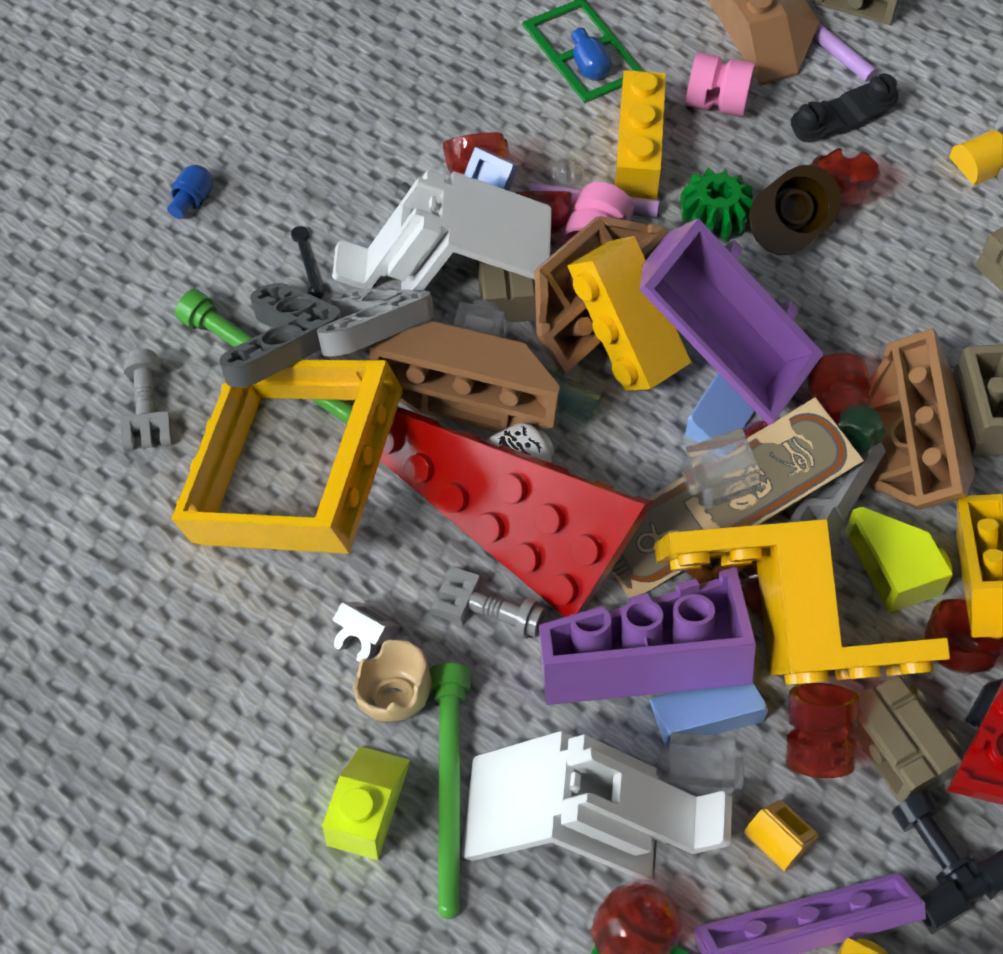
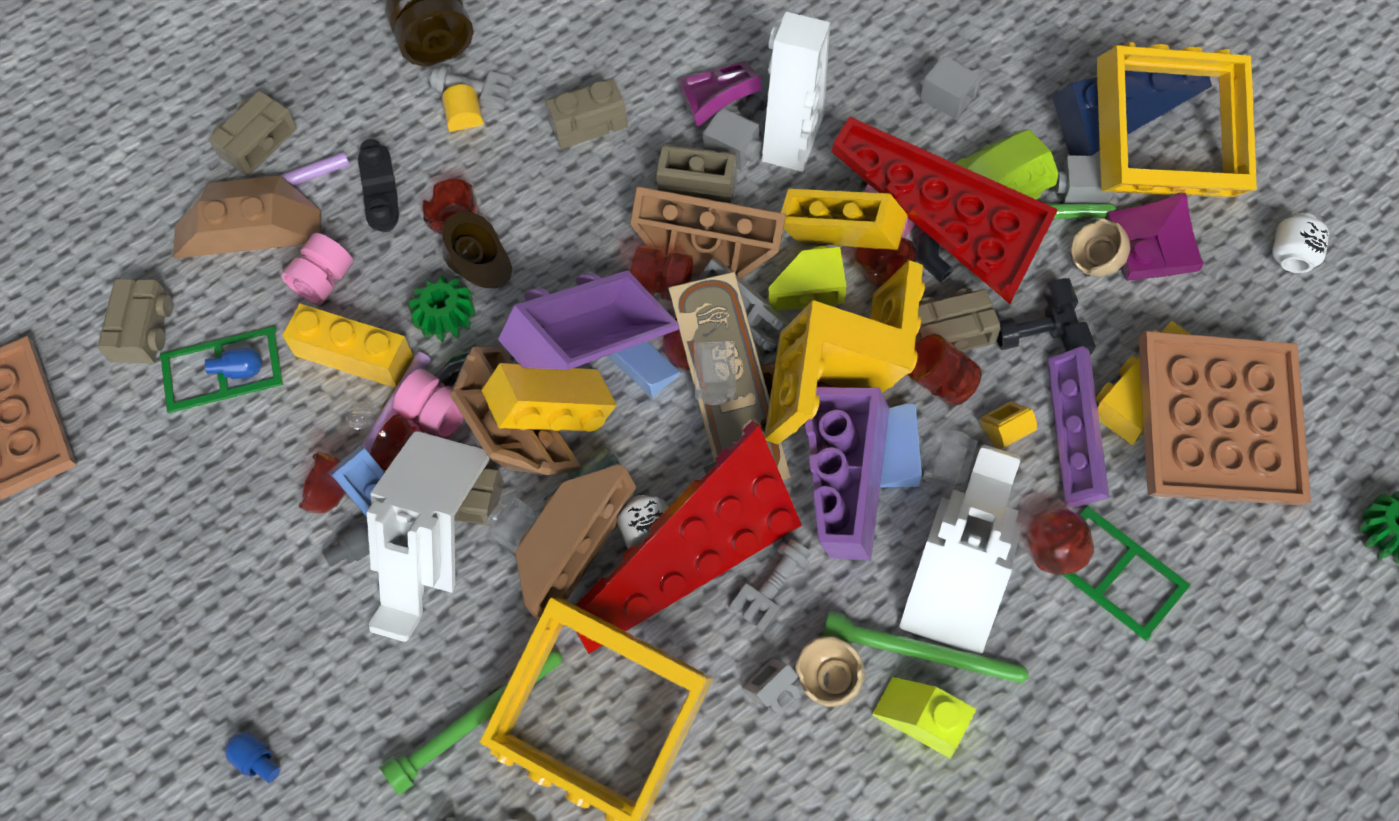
camera: 70 degrees left, 5 degrees up
(292, 337) = (474, 677): dark grey beam -> none
(300, 235) = (340, 663): black hinge -> none
(372, 317) = (514, 623): light grey beam -> none
(861, 426) = (704, 263): clear green plate -> none

